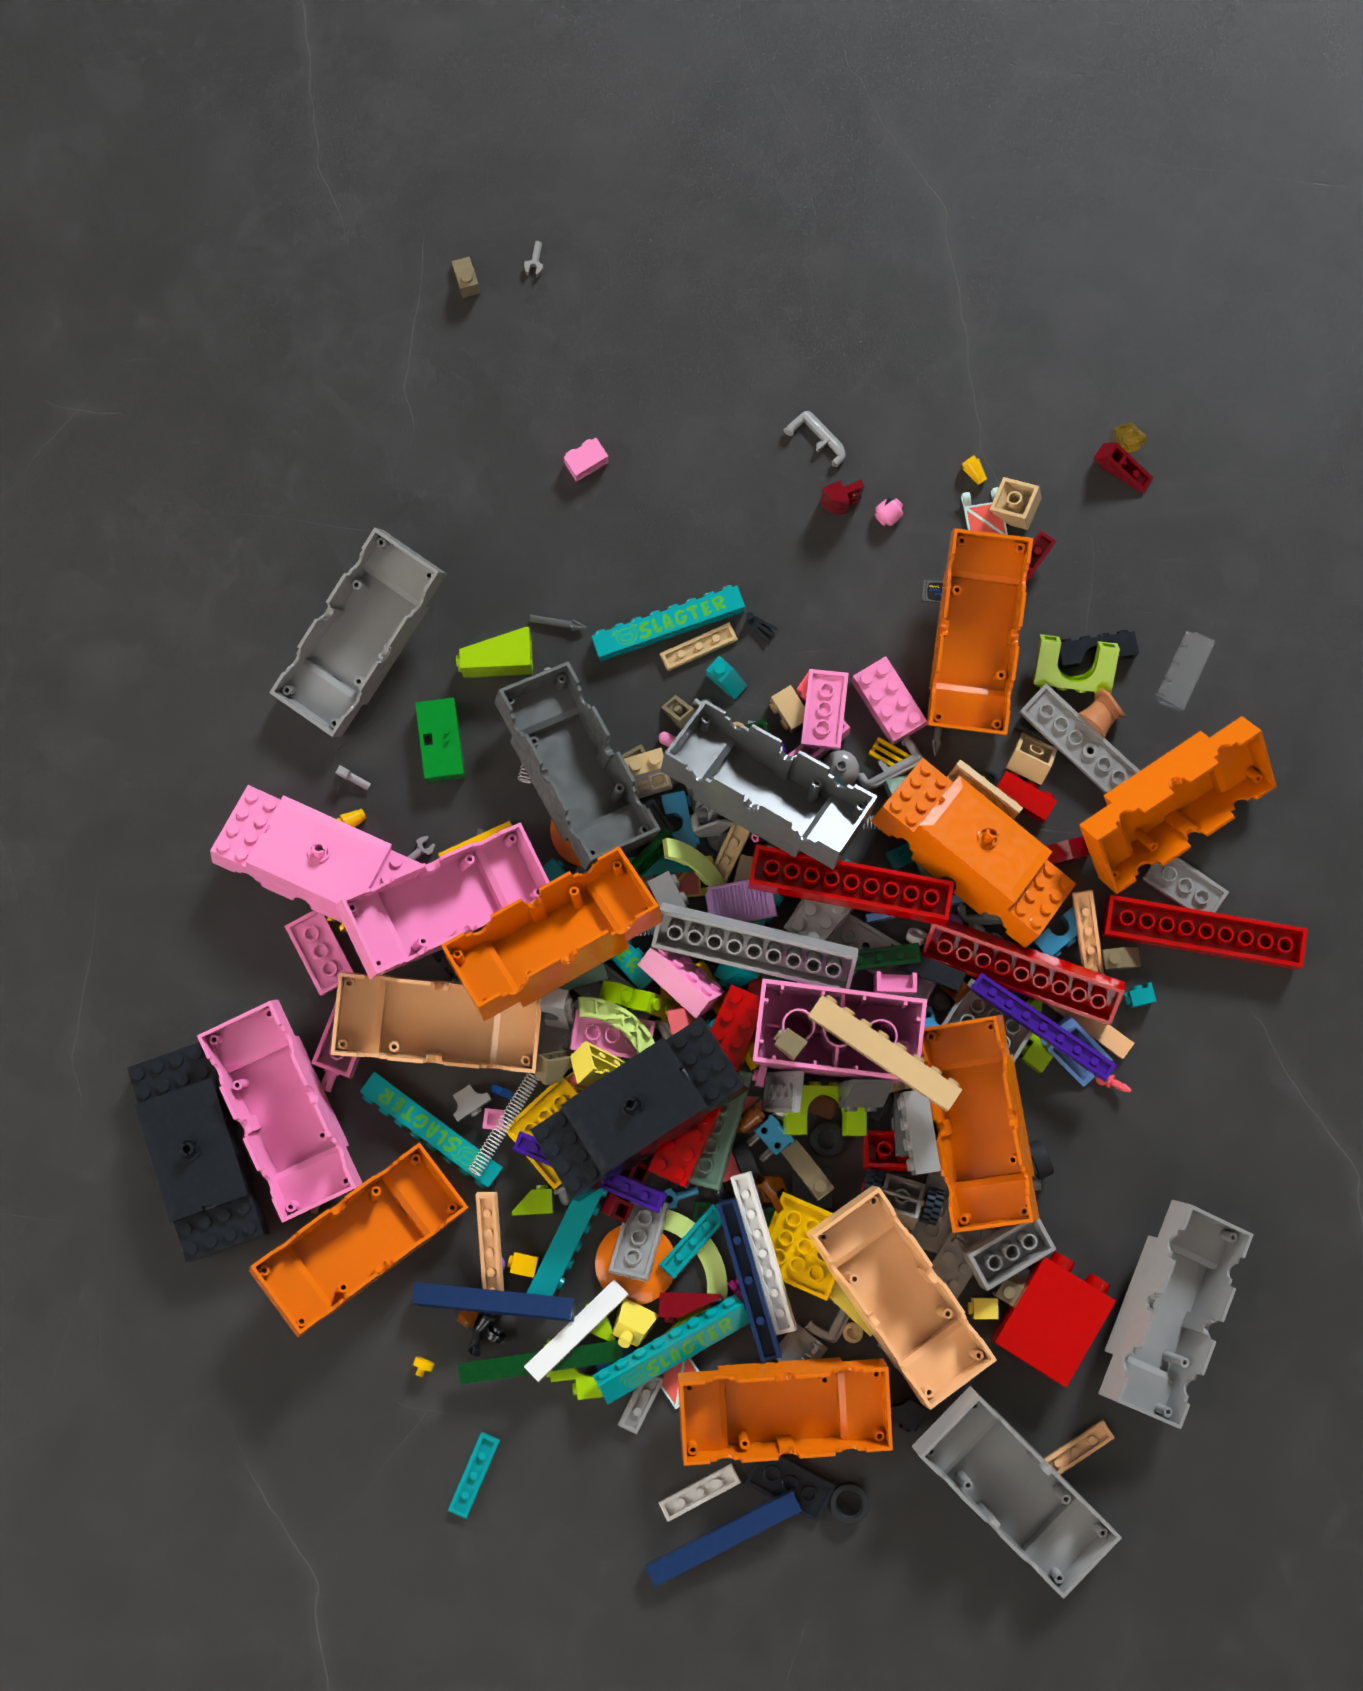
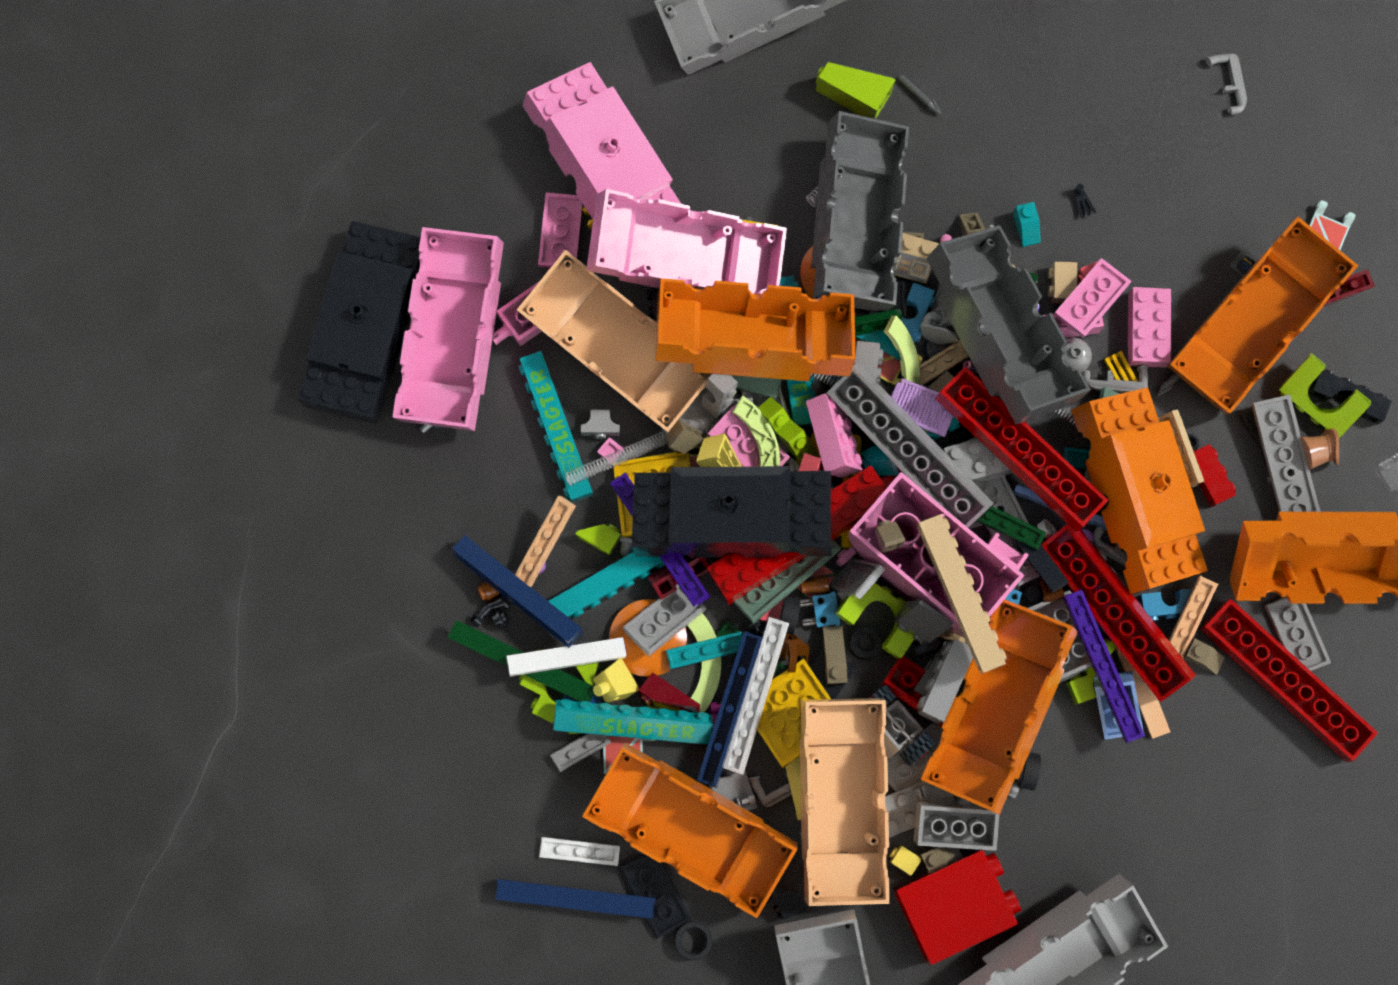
camera: 30 degrees right, 0 degrees up
(347, 774) = (673, 107): light grey bar -> none
(353, 818) = (656, 143): yellow cone -> none
(358, 1240) = (442, 470): orange piece -> none
(420, 850) = (692, 202): light grey bar -> none
(423, 1365) = (427, 605): yellow tile -> none
(440, 740) = (764, 126): green brick -> none
(473, 1475) = (411, 717): teal tile -> none
(502, 1092) = (631, 433): blue tile -> none
(523, 1264) = (558, 579): yellow brick -> none
(668, 623) = (1009, 151): teal brick -> none
(680, 1195) = (718, 608): dark azure bar -> none
(698, 647) = (1021, 186): tan tile -> none
(822, 1107) = (879, 613): reddish brown tile -> none
(837, 498) = (1216, 138): dark red brick -> none
(852, 1332) = (785, 808): tan tile -> none
(889, 511) = (1250, 176): bright pink head -> none
(974, 469) = (1344, 188): yellow cone -> none
(1016, 502) = (1361, 235): tan slope -> none
(1032, 758) = (1237, 449): tan slope -> none
(1068, 851) = (1218, 542): dark red slope -> none
(1114, 1083) = (1129, 748): coral bar -> none
(1140, 996) = (1200, 697): teal brick -> none

